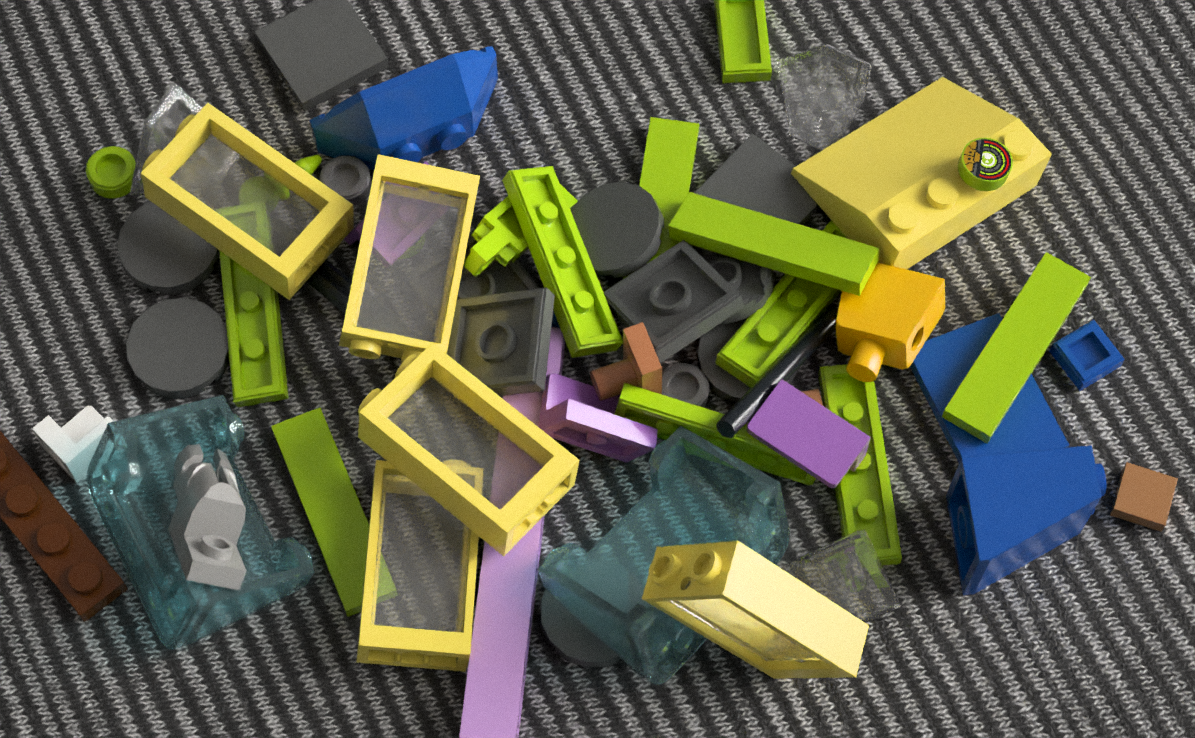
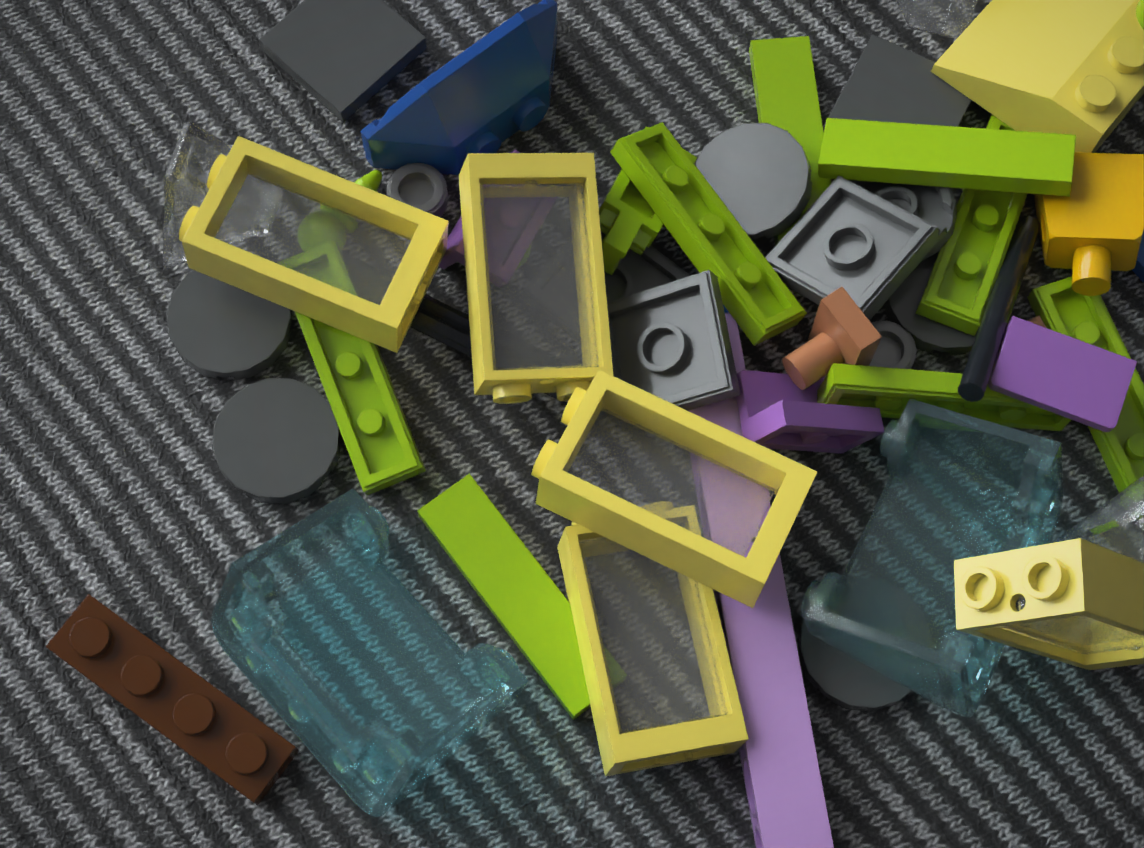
camera: 15 degrees left, 5 degrees up
(74, 442) = (188, 583): white panel -> none
(111, 171) = (134, 245): lime tile -> none
(207, 519) = (384, 651): light grey plate -> none

